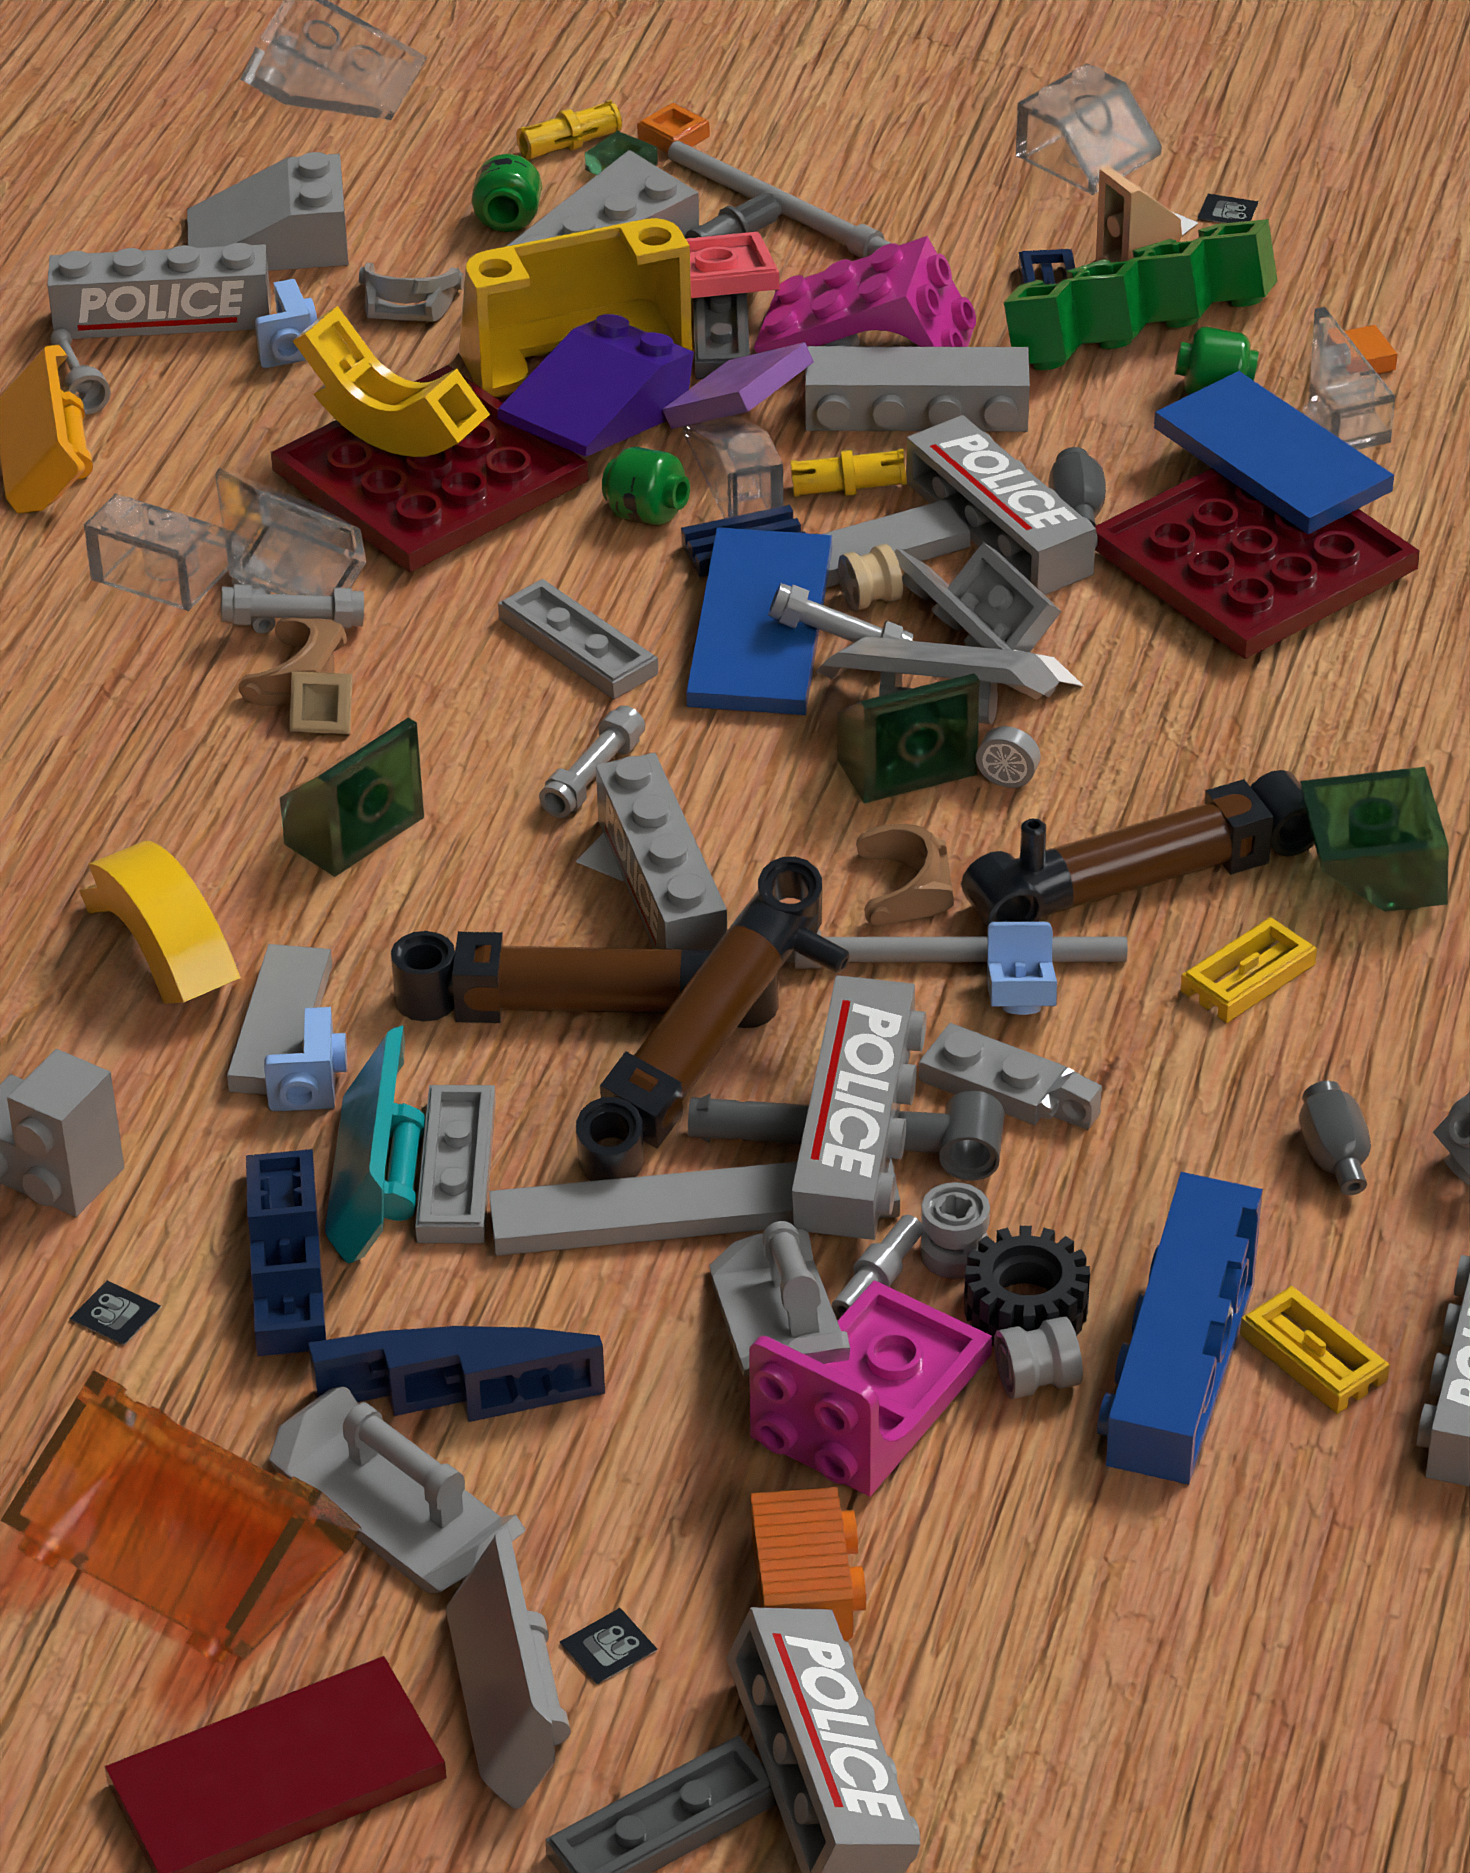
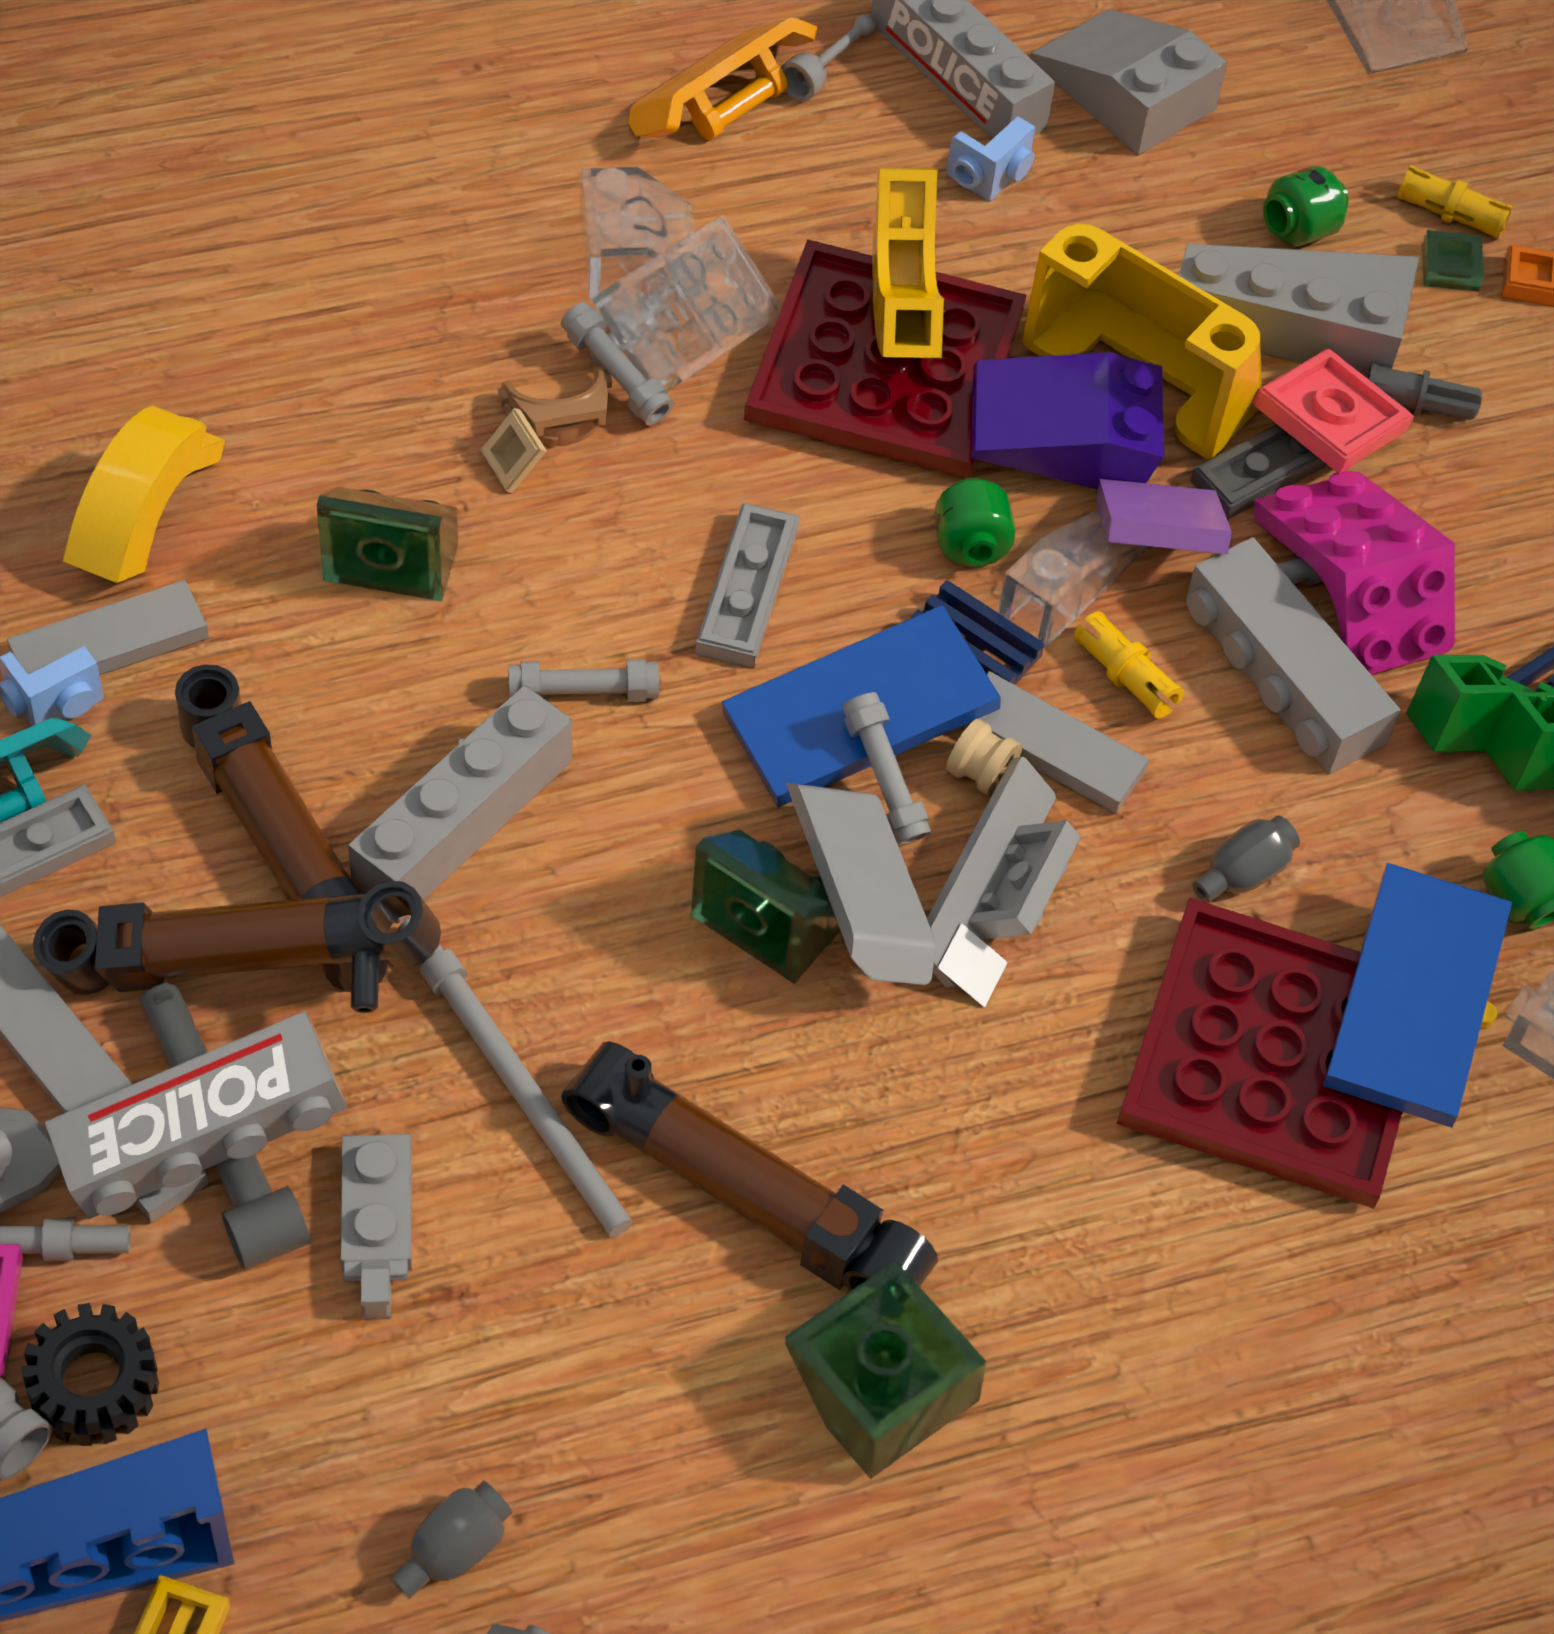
camera: 50 degrees right, 15 degrees up
(436, 290) = (1095, 208): light grey helmet -> none
(860, 239) = (1490, 498): light grey bar -> none
(926, 893) = (608, 1020): medium nougat helmet -> none
(953, 1223) = (129, 1289): light grey wheel -> none
(1002, 503) = (1170, 807): light grey brick -> none
(1008, 757) = (808, 996): light grey tile -> none
(1020, 966) = (511, 1157): light blue bracket -> none
(1257, 973) = (654, 1370): yellow tile -> none

